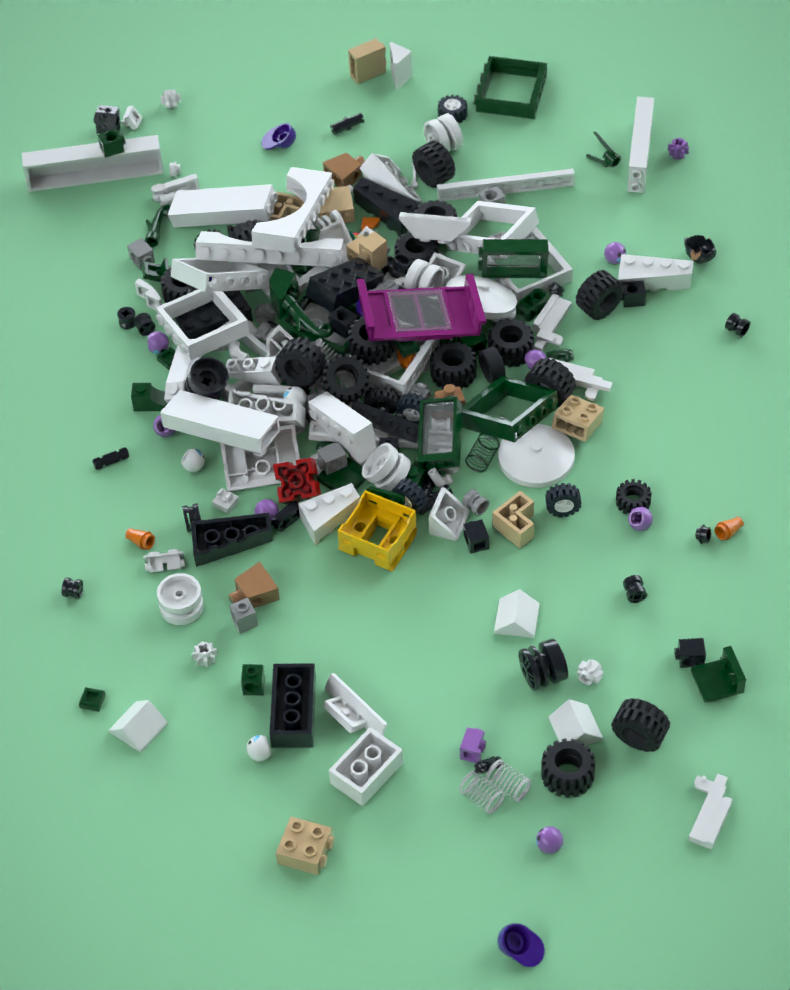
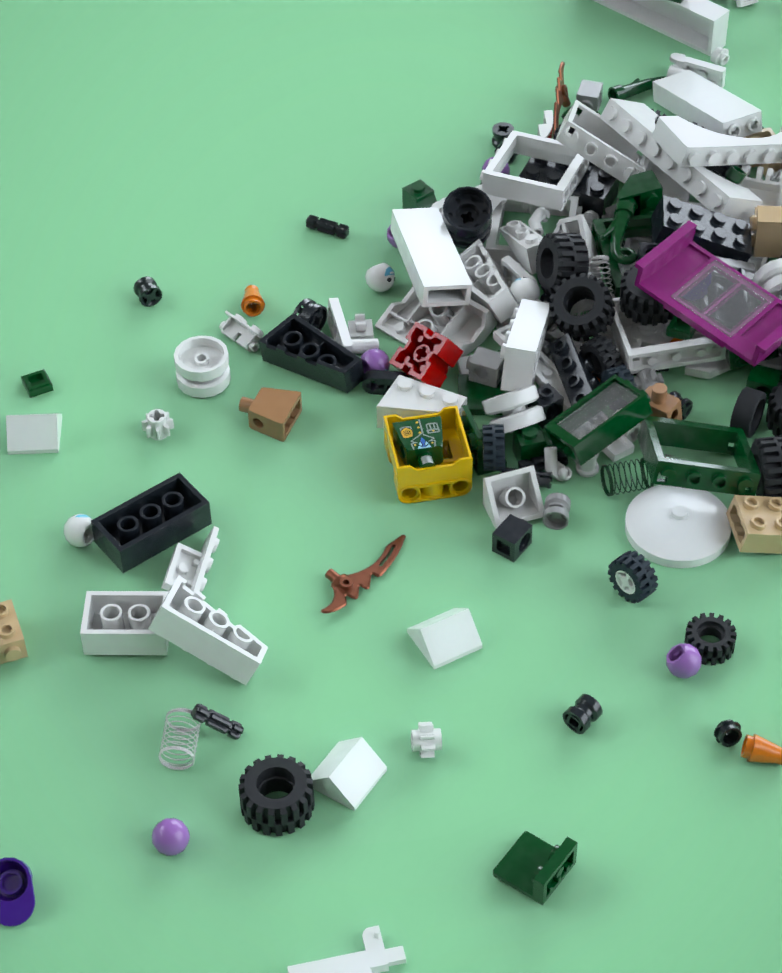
camera: 50 degrees right, 5 degrees down
(125, 263) = (561, 97): none -> copper piece
(216, 509) = (340, 331): none -> white piece
(243, 615) = (229, 423): light grey brick -> none
(253, 679) = (155, 470): dark green brick -> none
(374, 526) = (419, 441): none -> dark green torso
(421, 727) = (207, 633): none -> white wedge
(432, 636) = (348, 585): none -> copper piece
(453, 365) = (713, 385): black tyre -> none
(472, 745) = (236, 695): medium lavender brick -> none
(495, 764) = (215, 761): white piece -> none
(513, 519) = (564, 549): tan brick -> none
(543, 664) = (390, 688): black wheel -> none
(640, 725) = (386, 822): black tyre -> none
(690, 652) = (545, 817): black brick -> none

